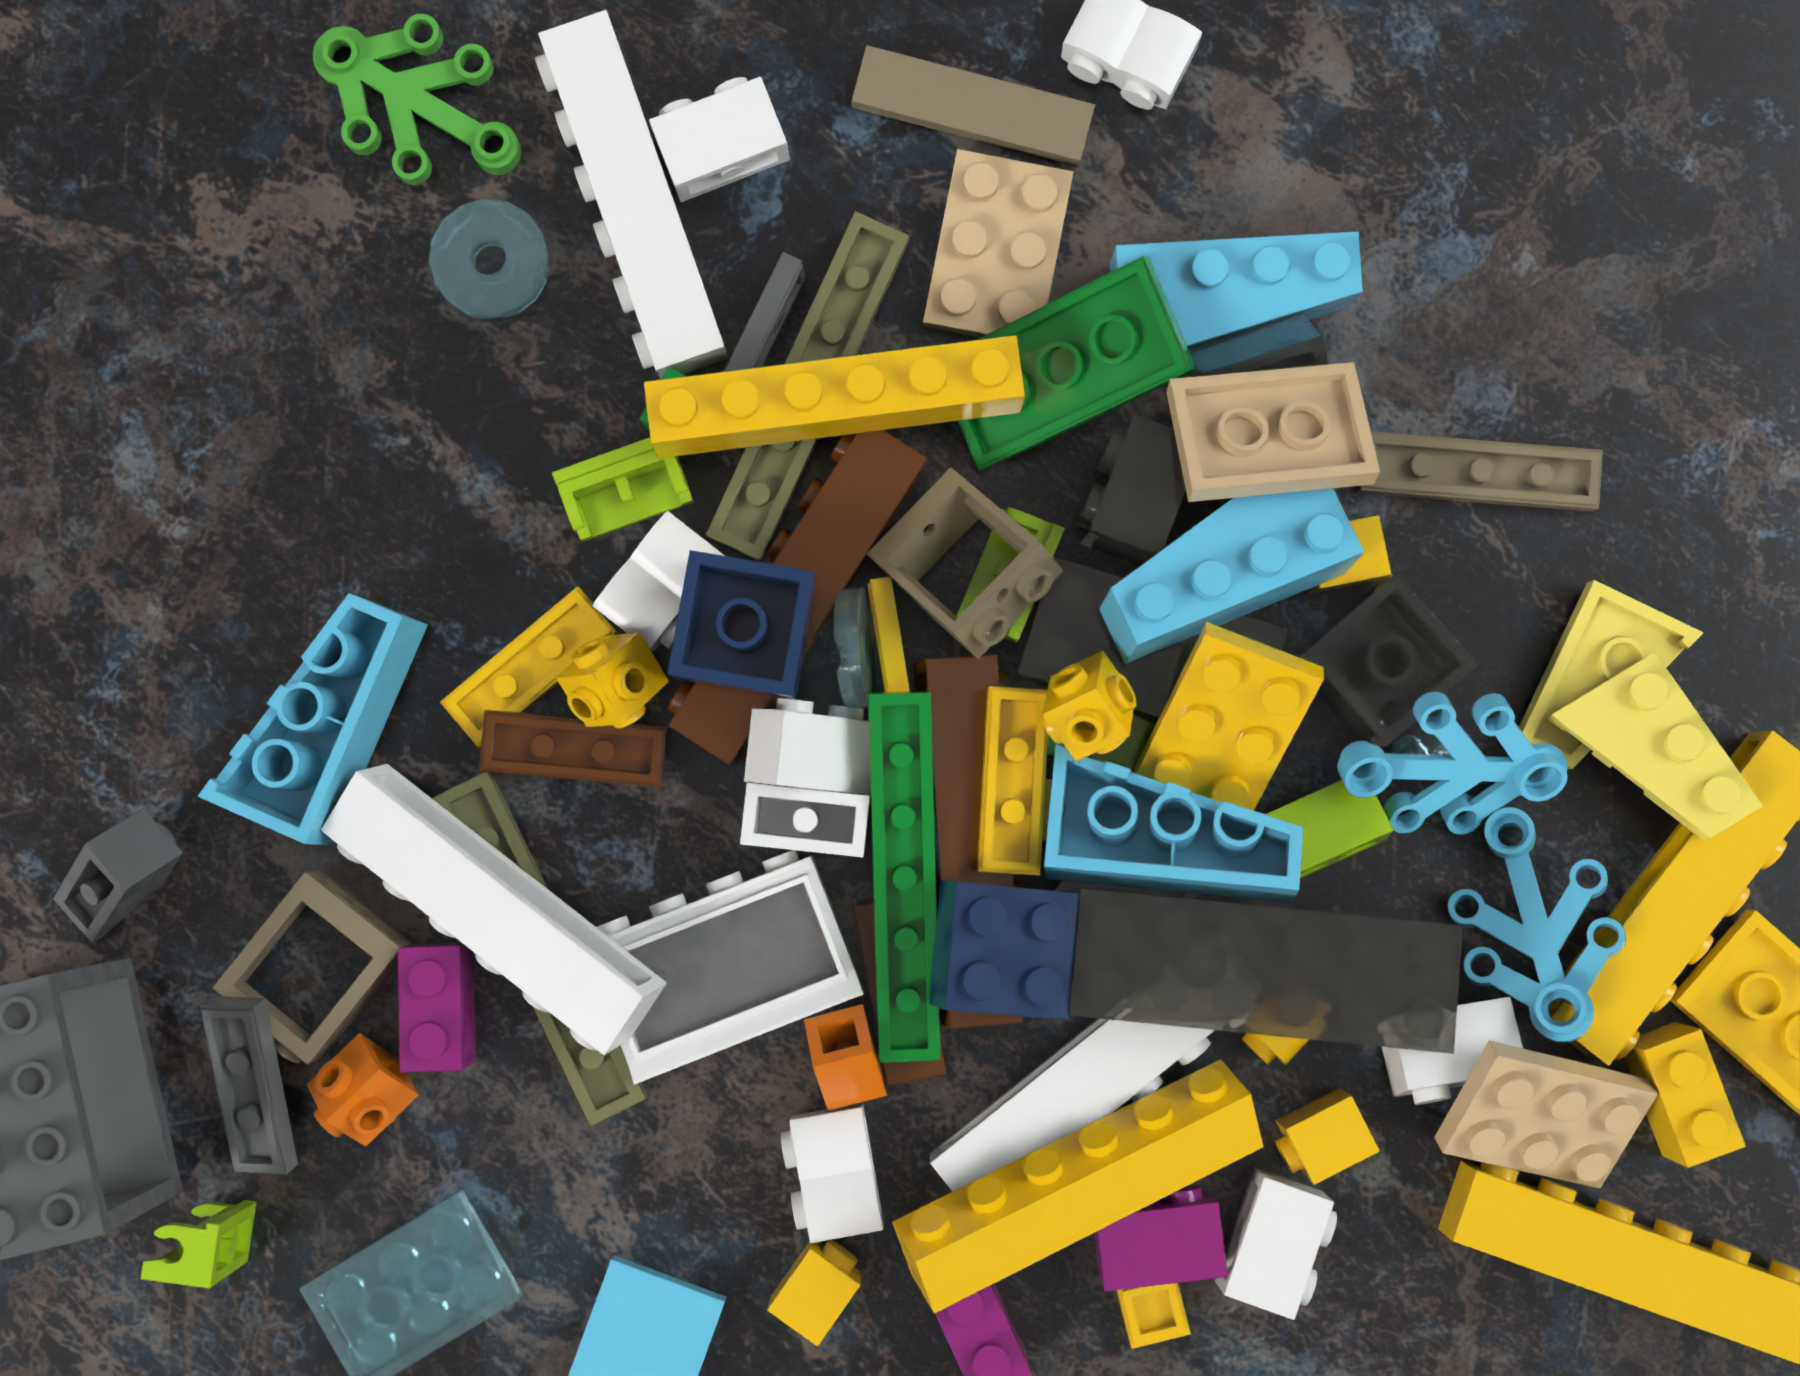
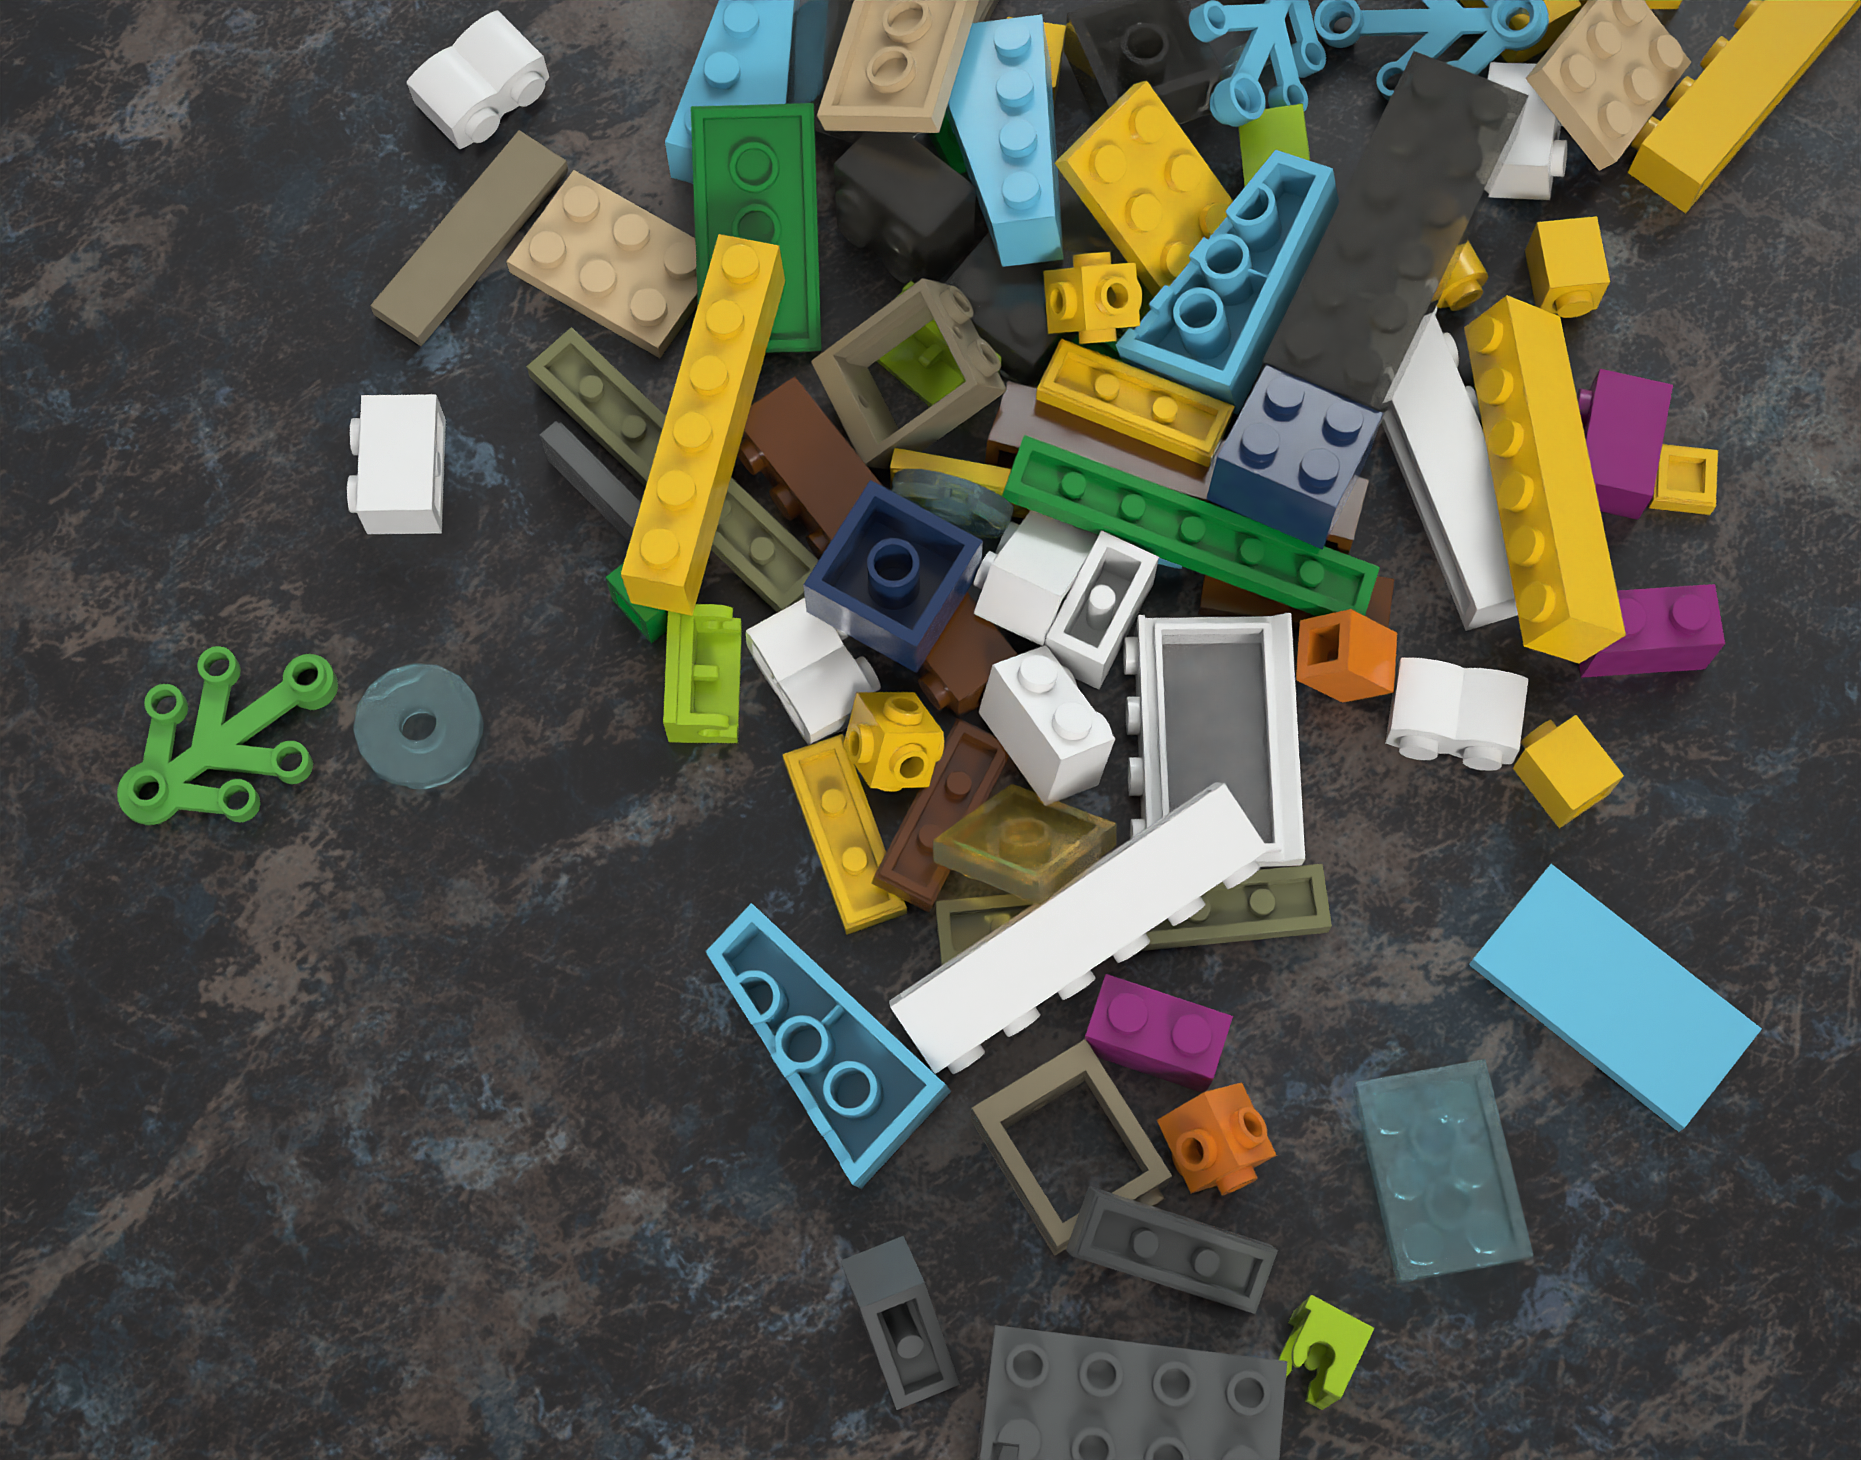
camera: 70 degrees left, 15 degrees down
(554, 832) = (1024, 844): none -> clear yellow plate
(632, 196) = (419, 563): white brick -> none
(678, 811) = (1046, 724): none -> white brick
(1277, 1243) = (1654, 338): white brick -> none

